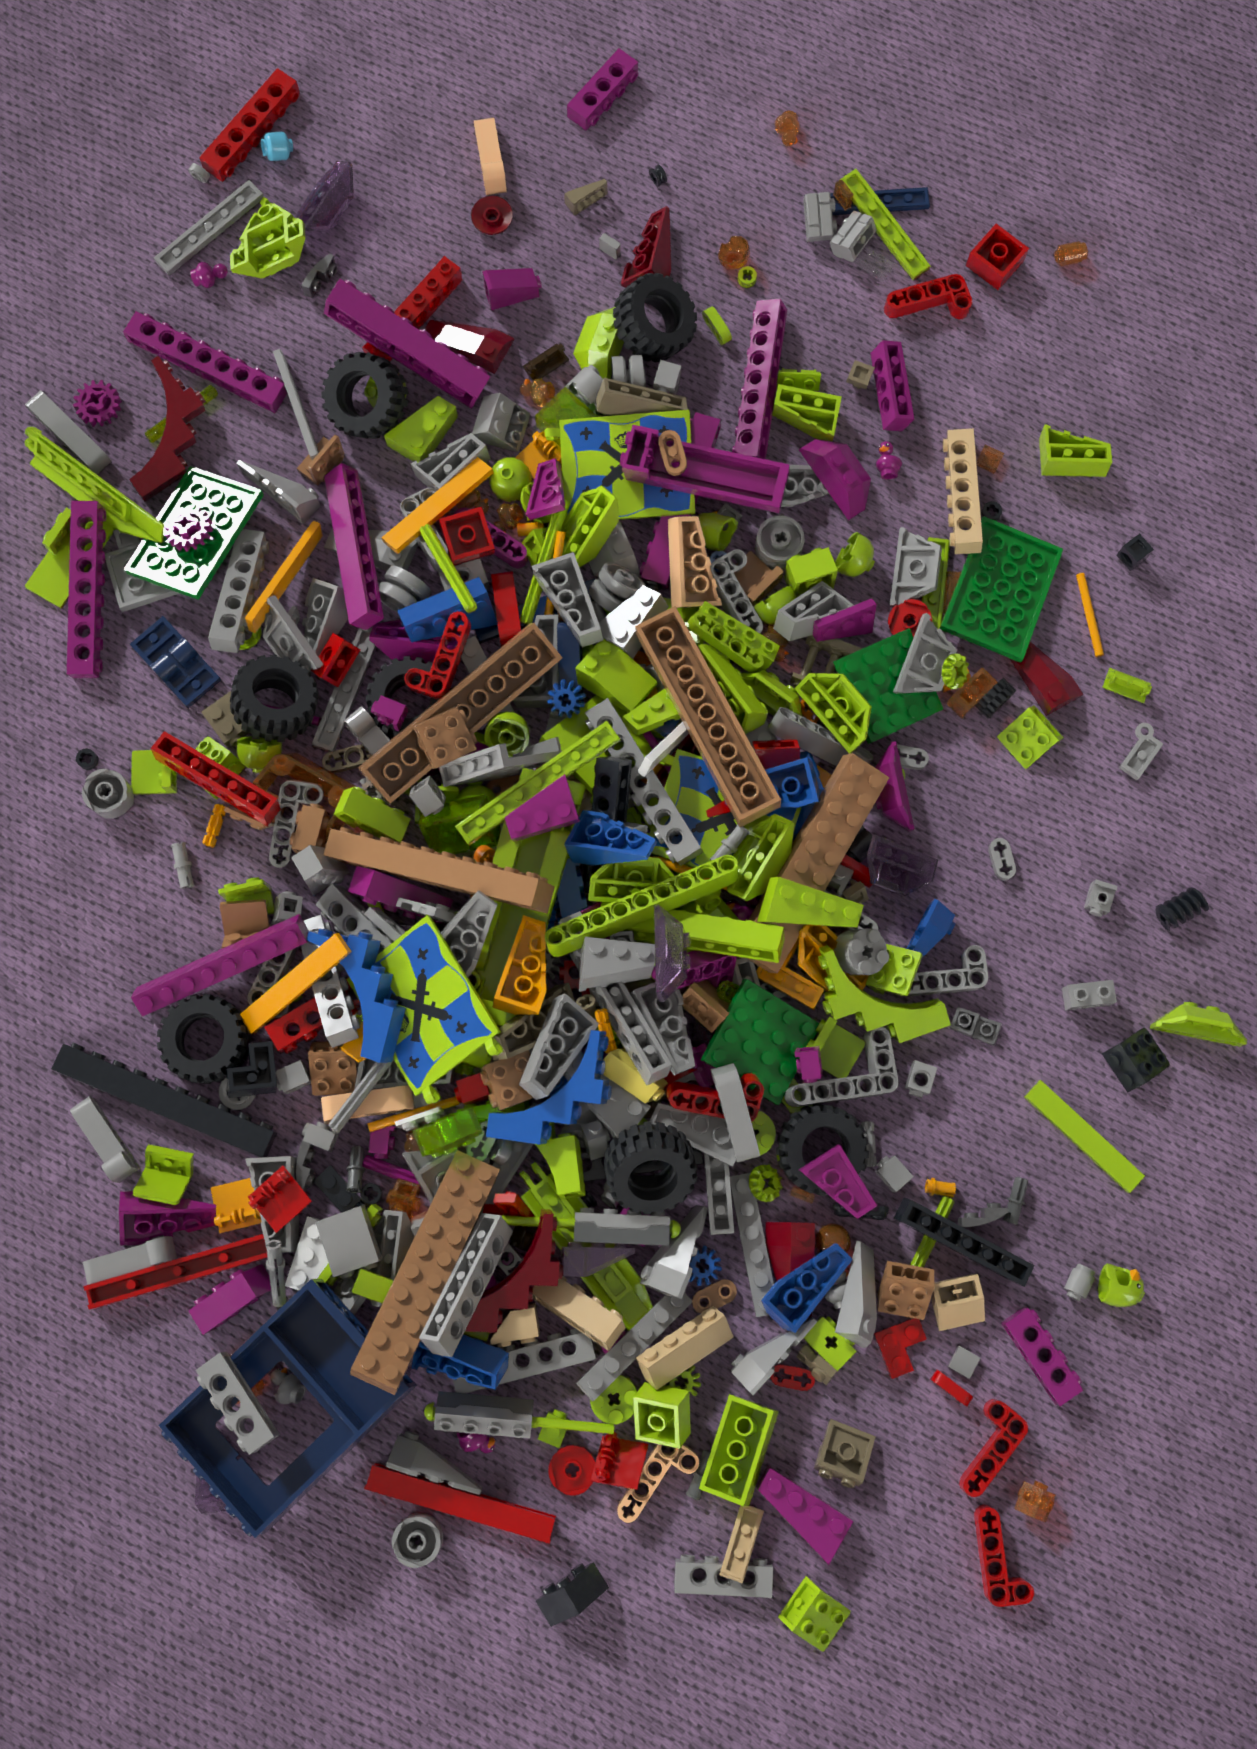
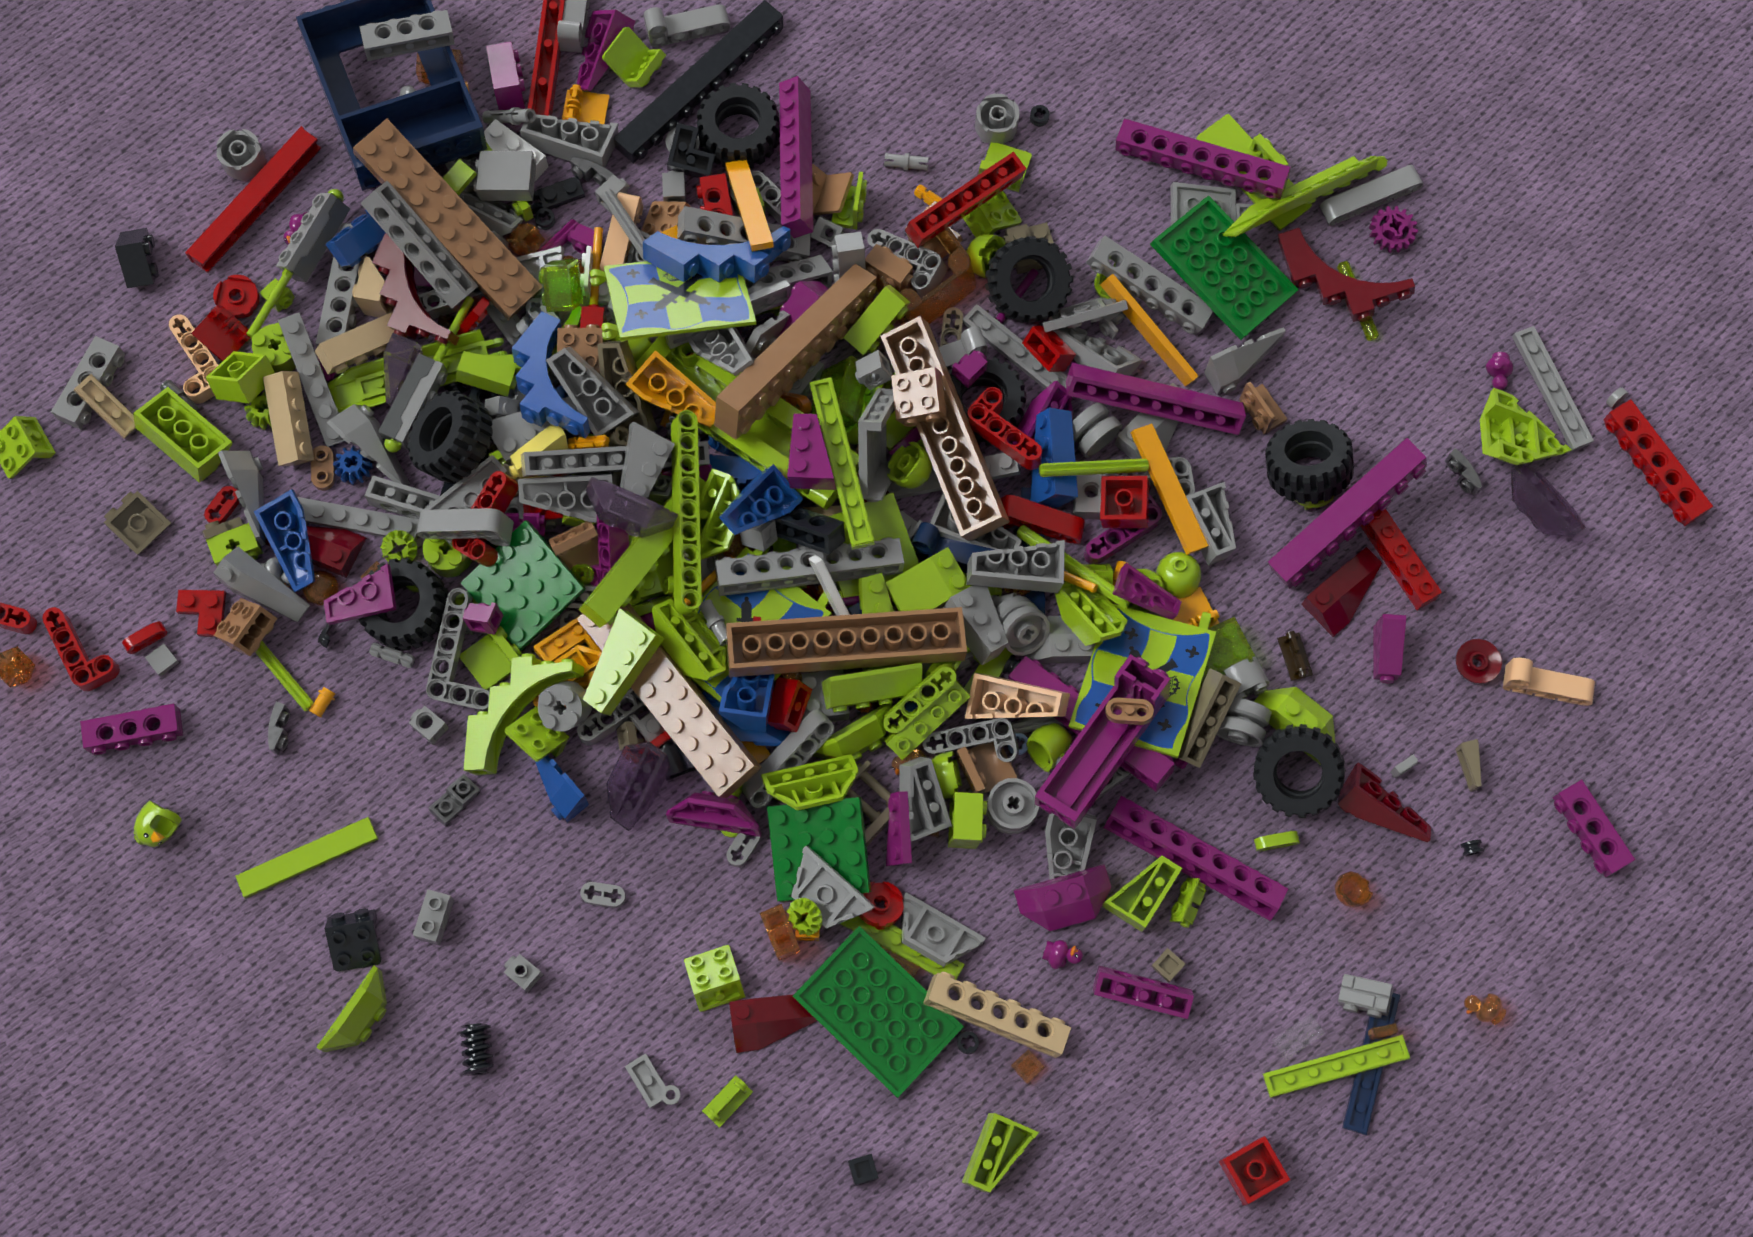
camera: 110 degrees right, 5 degrees down
(143, 324) = (1456, 287): magenta brick -> none
(175, 662) = (1104, 215): dark blue plate -> none
(188, 528) = (1224, 257): gear -> none
(276, 146) = (1624, 479): medium azure head -> none
(279, 1199) = (568, 134): red hinge -> none
(296, 403) = (1326, 402): light grey tile -> none
(355, 1170) = (570, 211): dark grey axle -> none
(417, 1457) = (303, 178): light grey wedge -> none
(423, 430) = (1258, 510): lime wedge -> none
(474, 499) = (1162, 539): clear orange animal -> none
(501, 422) = (1241, 588): light grey slope -> none
(509, 516) = (1138, 556): clear orange animal -> none
(539, 391) = (1263, 635): clear orange animal -> none
(558, 698) = (920, 527): blue gear -> none
(667, 377) = (1223, 758): light grey brick -> none
(749, 271) = (1320, 902): lime bush -> none
(808, 1514) = (106, 469): magenta wedge -> none
(852, 236) = (1332, 1024): light grey brick -> none
(856, 556) = (968, 876): lime cylinder -> none
(893, 1173) = (354, 664): light grey brick -> none
(900, 302) = (1230, 1073): red beam -> none
(958, 1302) = (216, 672): tan slope -> none
(963, 976) = (513, 784): light grey beam -> none
(964, 1242) = (261, 695): black brick -> none
(995, 698) = (764, 953): black tyre -> none
(1016, 1200) = (277, 766): dark grey axle -> none
(1079, 1282) = (178, 791): light grey brick -> none
(1089, 613) = (817, 1097): light orange bar -> none

